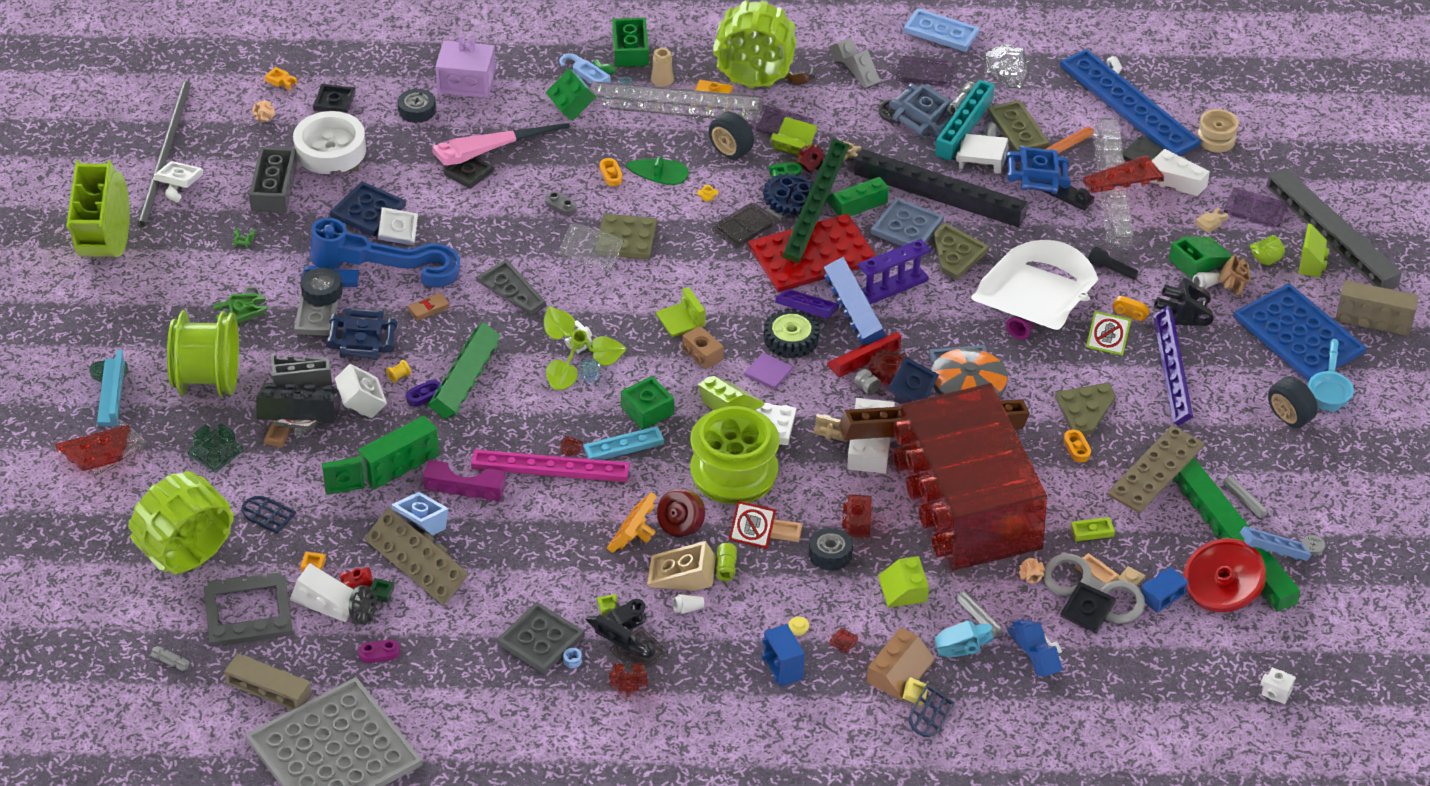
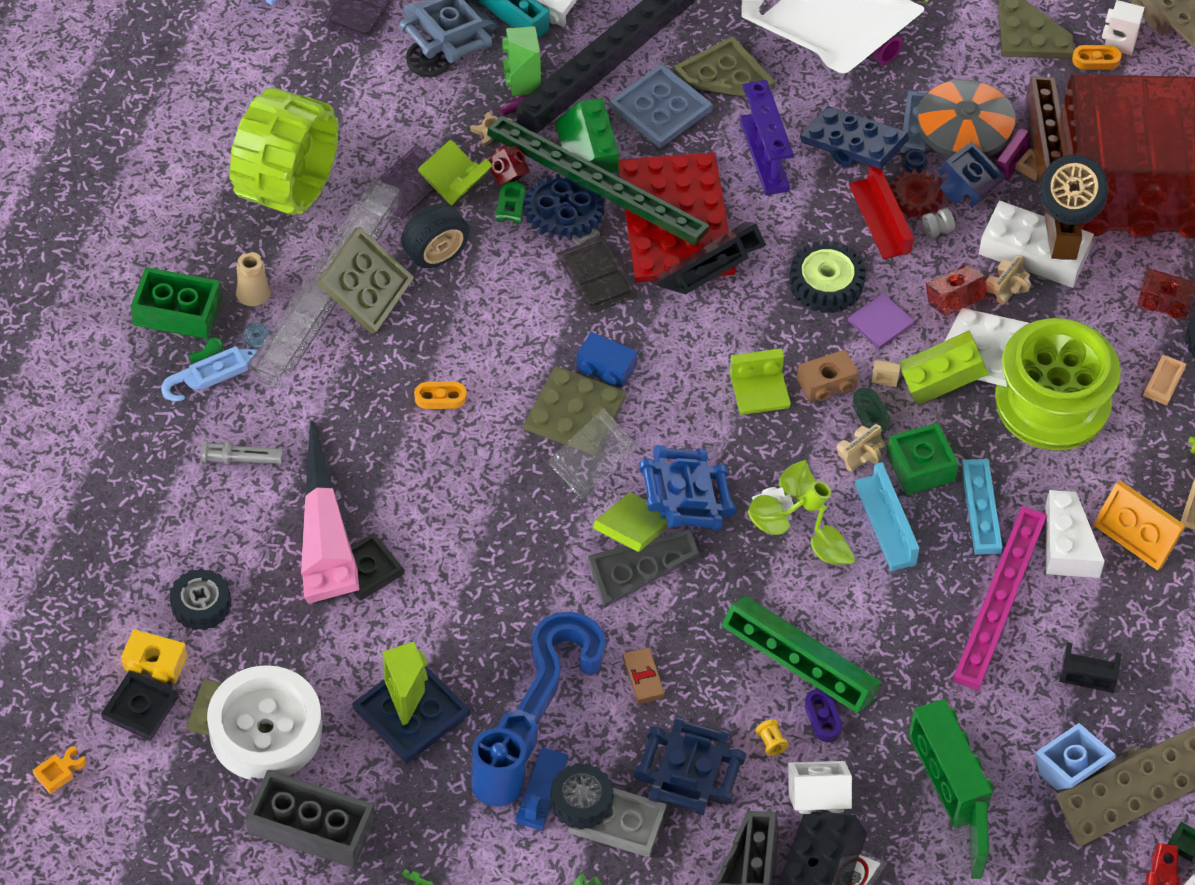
camera: 75 degrees left, 10 degrees up
(263, 111) = (133, 798): light nougat gear -> none
(368, 95) = (146, 646): none -> yellow brick
(373, 188) = (405, 678): none -> lime slope
(397, 226) = (468, 677): white tile -> none
(465, 68) = (160, 508): lavender piece -> none
(487, 485) = (995, 726): magenta arch -> none
(506, 519) = (1089, 671): none -> black panel
(534, 111) = (228, 453): none -> light grey pin
(539, 272) = (631, 522): none -> lime tile
(561, 203) = (482, 469): flat silver plate -> none
(570, 94) = (272, 397): green brick -> none
(570, 446) = (963, 568): clear red tile -> none
(575, 291) = (684, 488): none -> blue brick
(590, 370) = (835, 504): clear light blue wheel -> none
(593, 400) = (888, 519): none -> medium azure fence
(612, 489) = (1069, 538): none -> white wedge
(645, 370) = (864, 447): none -> tan hips
(659, 170) = (450, 341): green shield -> none
(669, 239) = (606, 360): none -> blue brick
(680, 512) = (1128, 462): dark red wheel -> none
(681, 113) = (365, 280): none -> olive plate
(683, 375) = (873, 412): none -> clear green plate
(707, 193) = (521, 303): yellow plate -> none
(714, 87) = (307, 238): light orange plate -> none
(718, 372) = (885, 373): none -> tan plate
(752, 524) = (1163, 402): piece -> none
(775, 270) = (712, 259): none -> black wedge
(807, 303) = (783, 244): dark purple tile -> none
(807, 398) = (956, 289): none -> clear red brick
(854, 301) = (799, 194): brick -> none
(858, 63) = (329, 63): light grey arch -> none
(879, 401) = (1079, 205): none -> wheel
(905, 144) = (522, 64): none -> bright green slope
(922, 322) = (854, 138): none -> dark blue plate
(923, 360) = (915, 160): none -> dark blue plate
(1107, 449) = (1123, 26): none -> white brick

